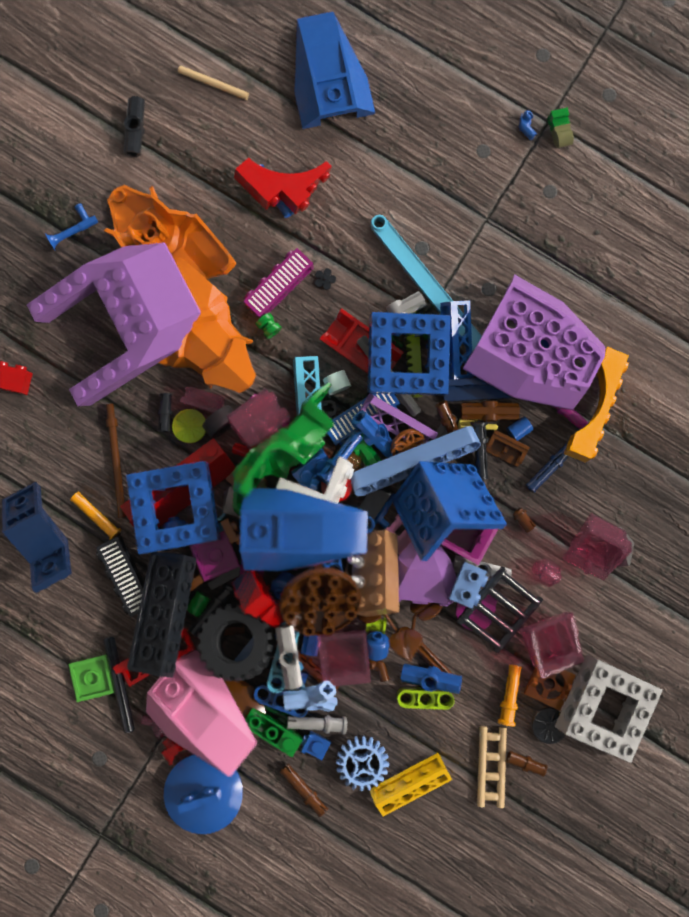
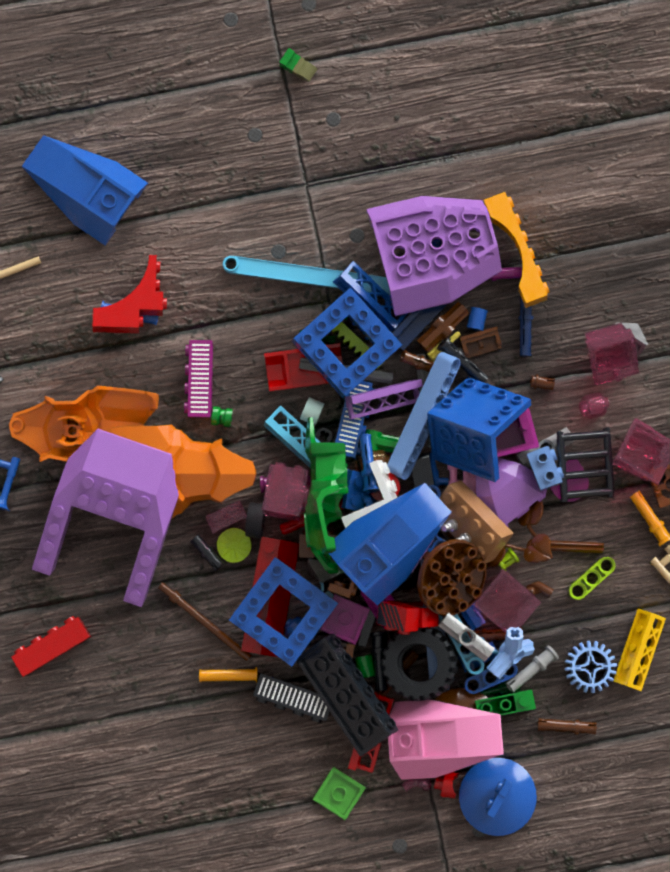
camera: 40 degrees left, 0 degrees up
(36, 537) = (203, 727): dark blue bracket -> none
(119, 685) = (363, 779): black axle -> none
(280, 582) = (411, 593): blue head -> none
(315, 745) = (545, 687): blue bracket -> none
(325, 279) = (229, 342): black plant -> none
(374, 433) = (377, 422): blue piece -> none
(377, 646) = (522, 572): blue head -> none
(408, 305) = (310, 306): light grey piece -> none
(408, 442) = (405, 406): dark orange wheel -> none
(442, 680) = (592, 554): blue piece -> none
(525, 123) = (267, 86): blue arm -> none

